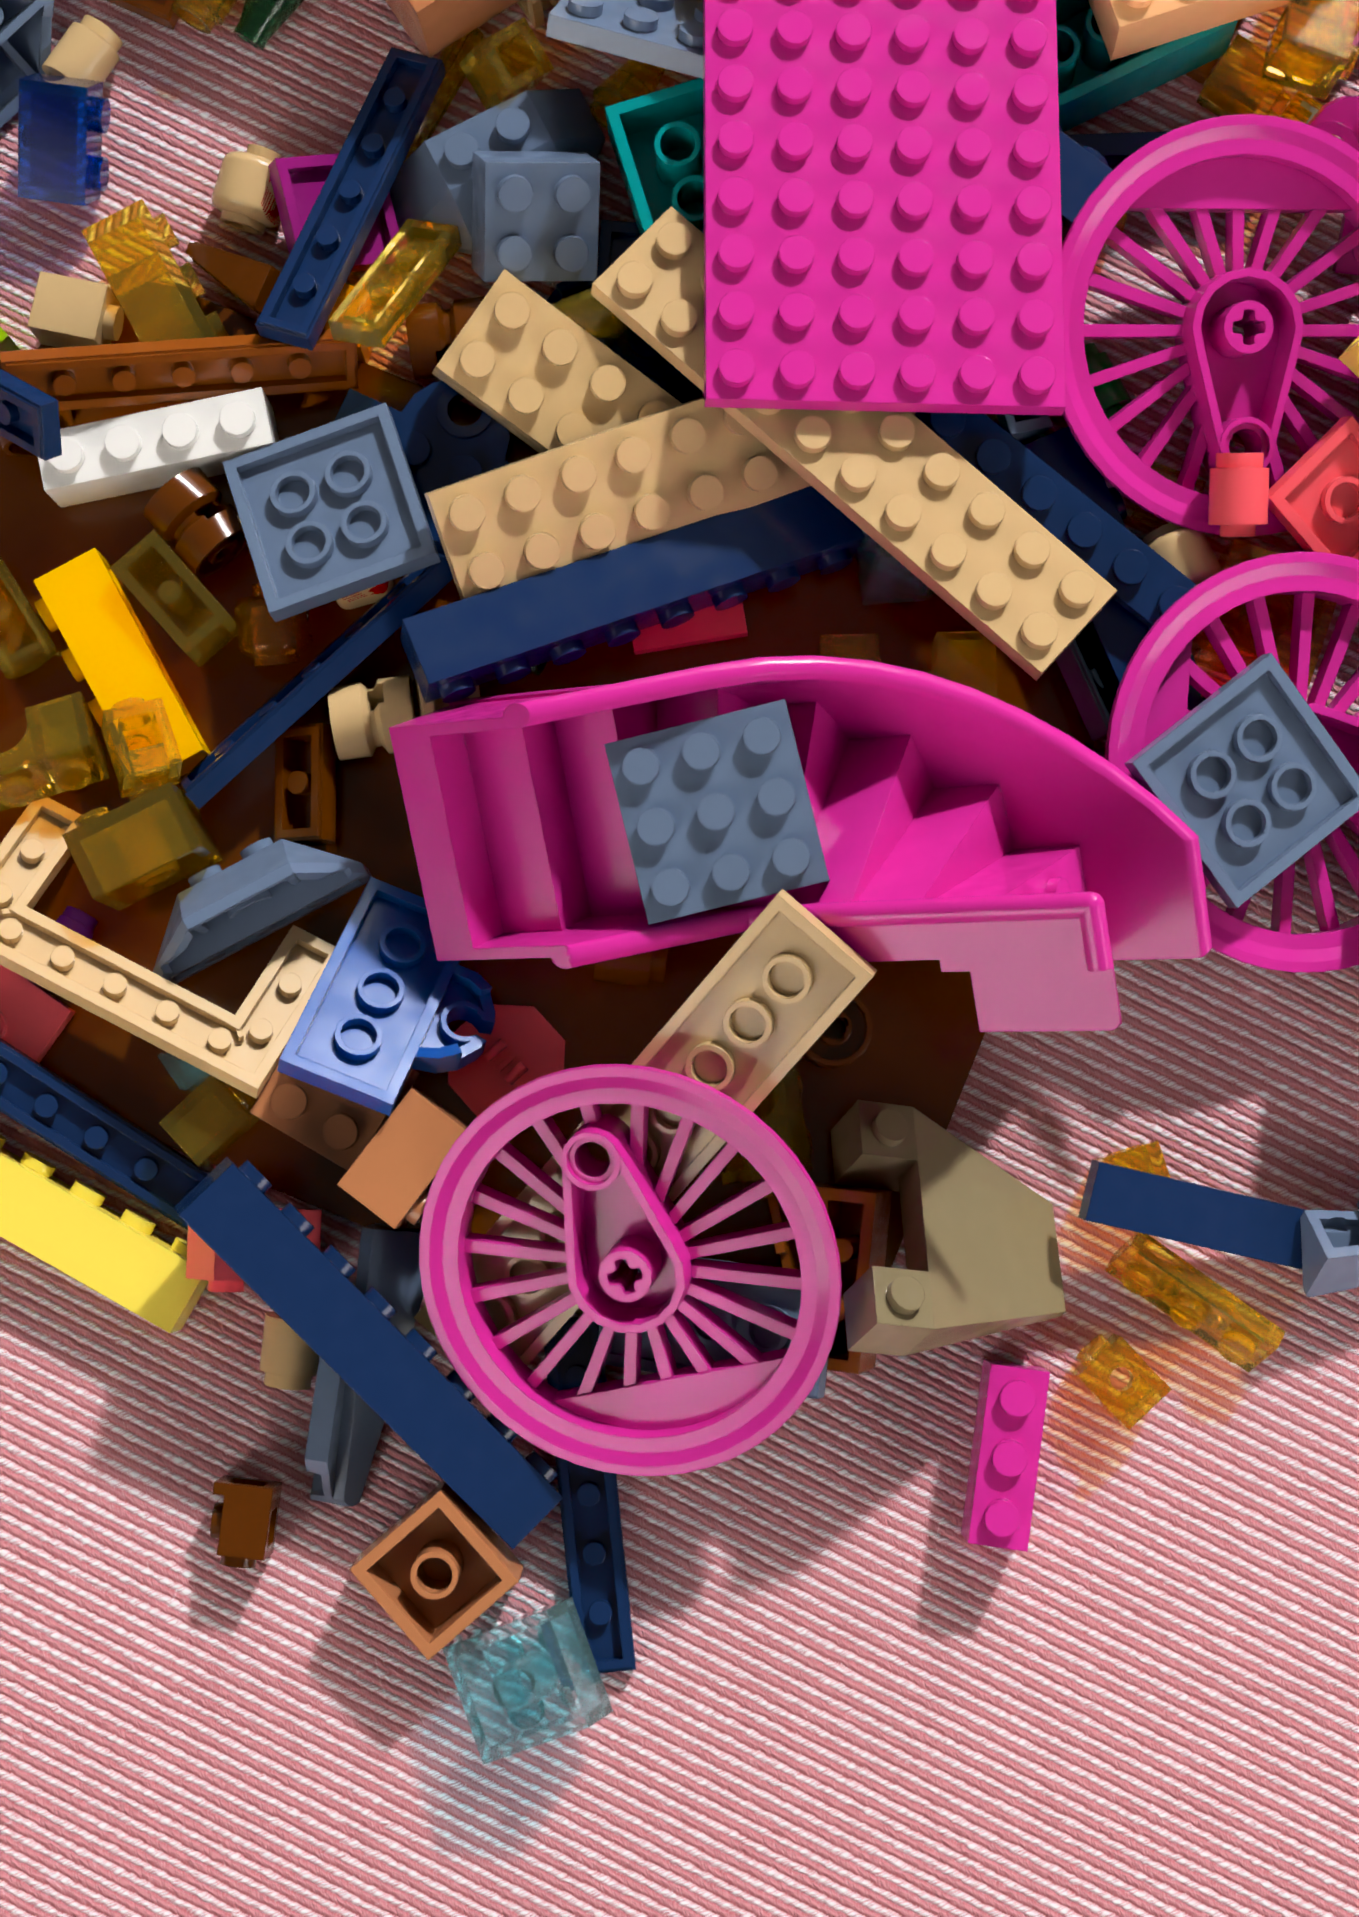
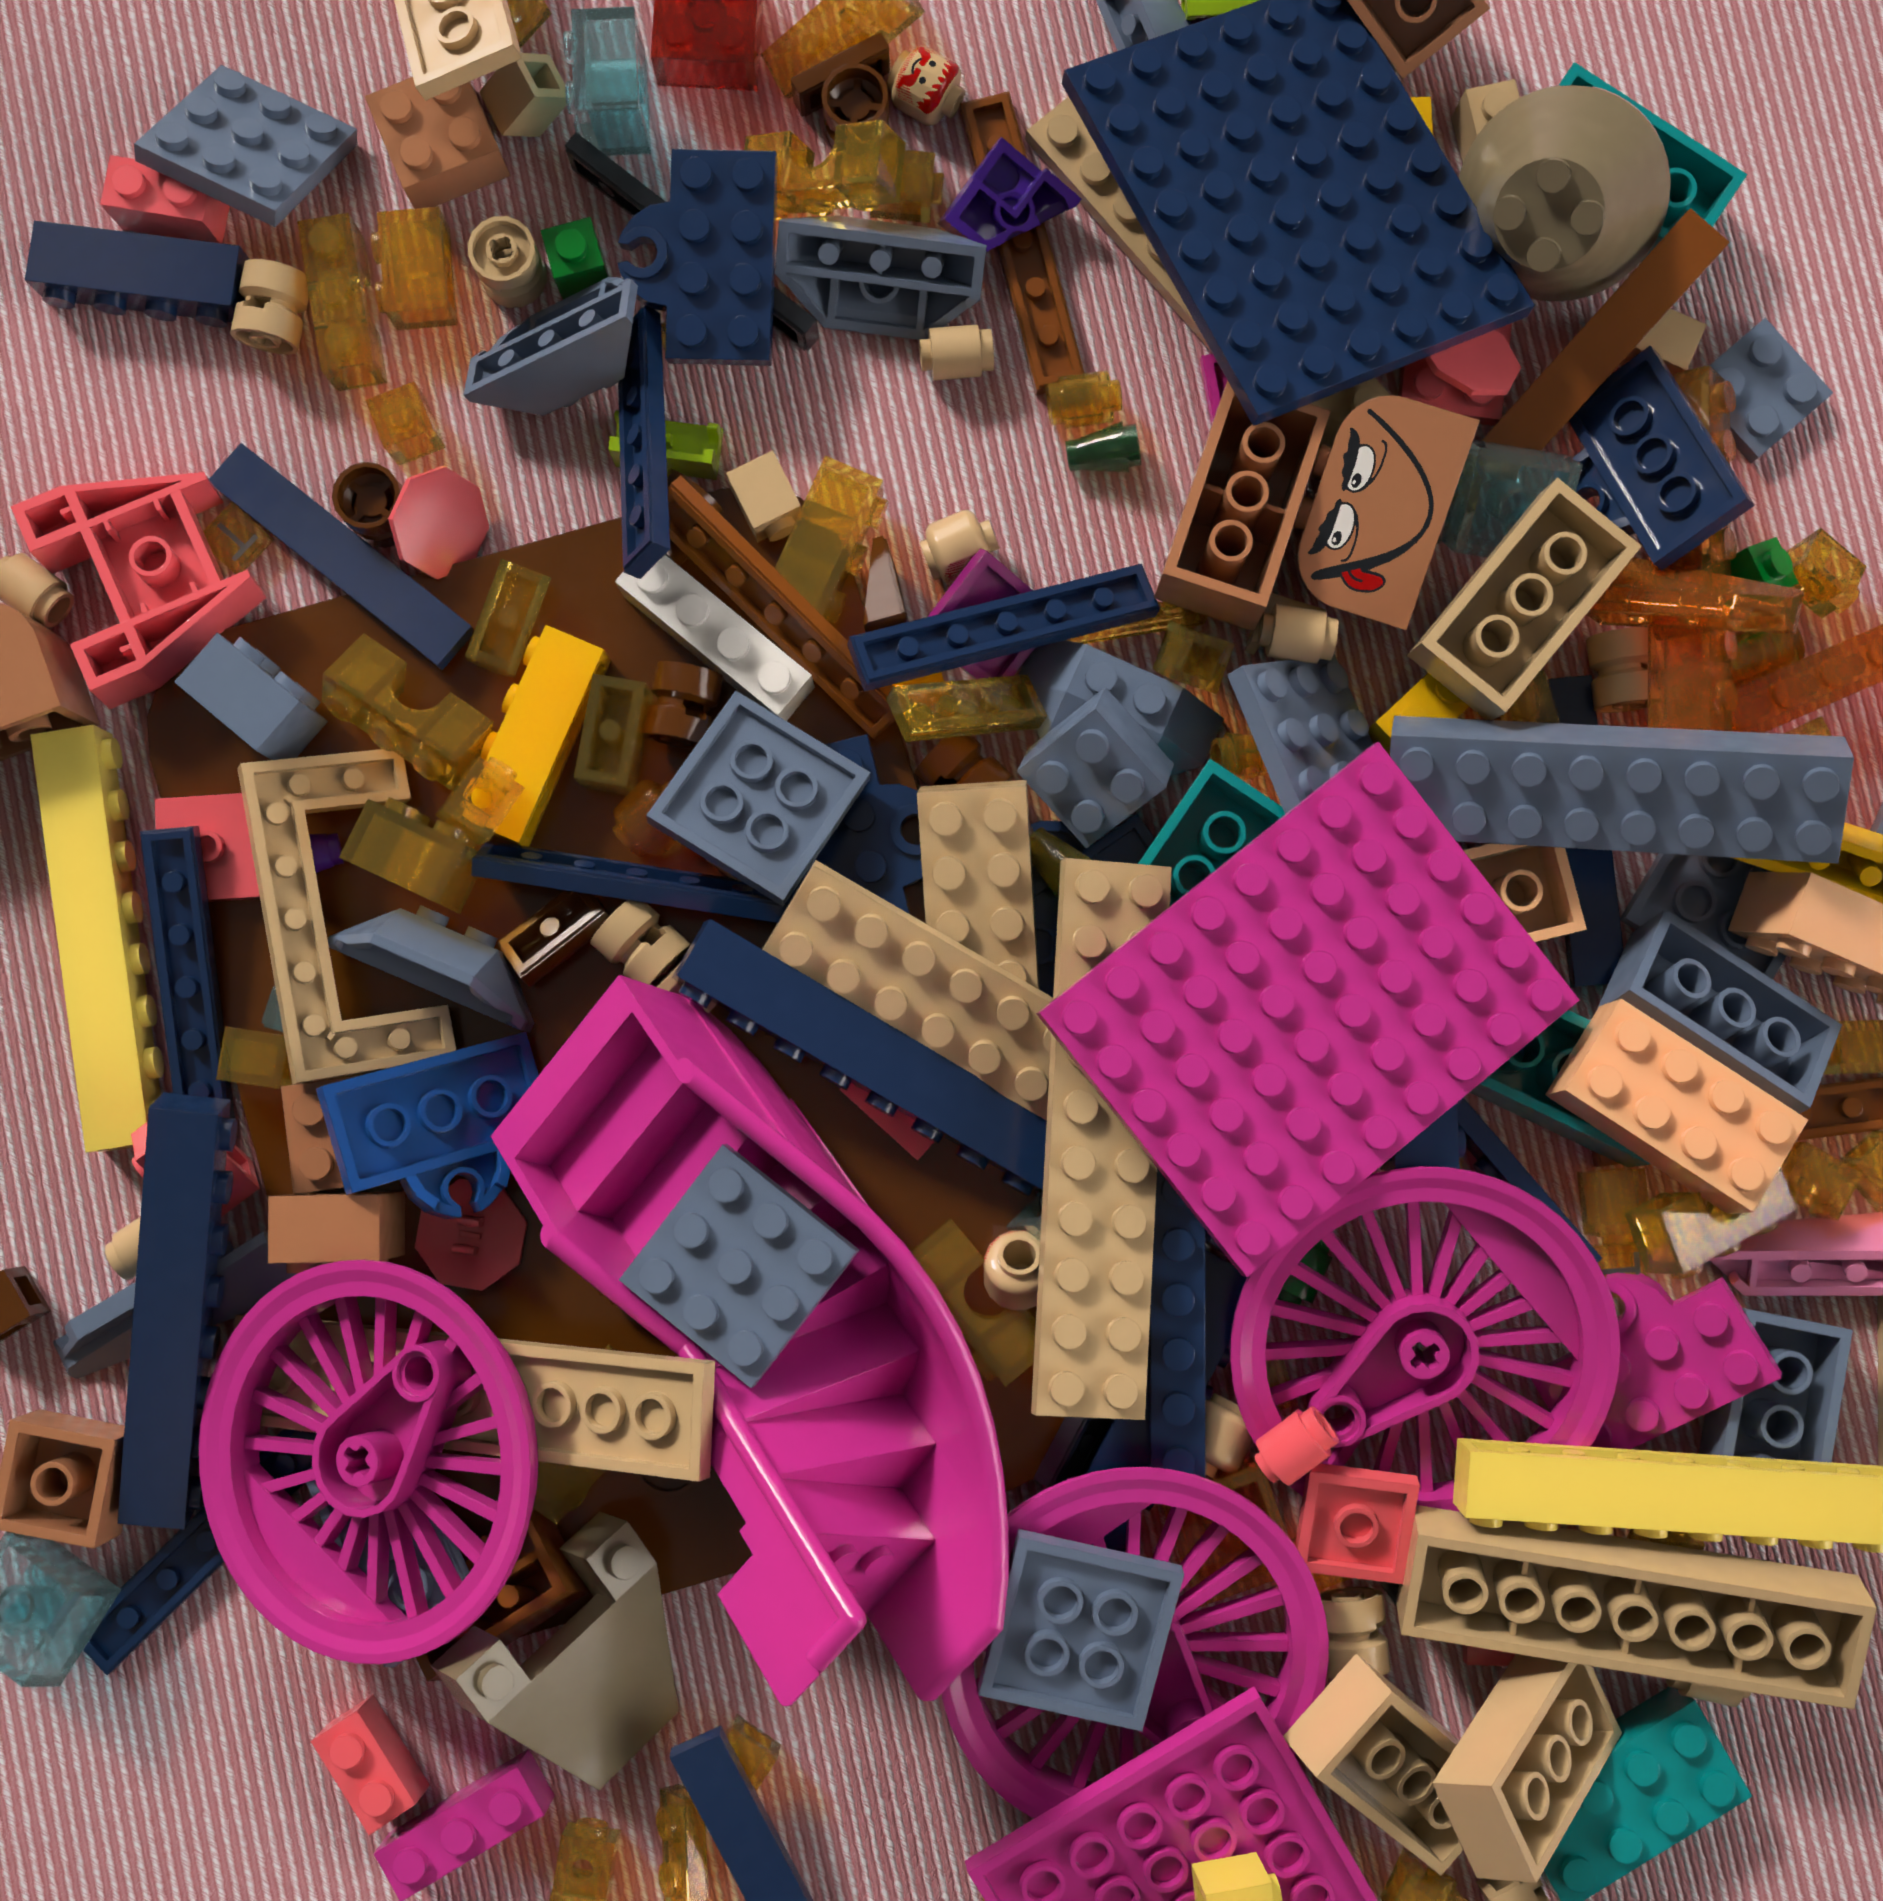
camera: 40 degrees right, 0 degrees up
(62, 139) = (884, 386): clear blue brick -> none
(890, 1495) = (370, 1764): none -> coral brick
(907, 612) = (1013, 1270): none -> tan head

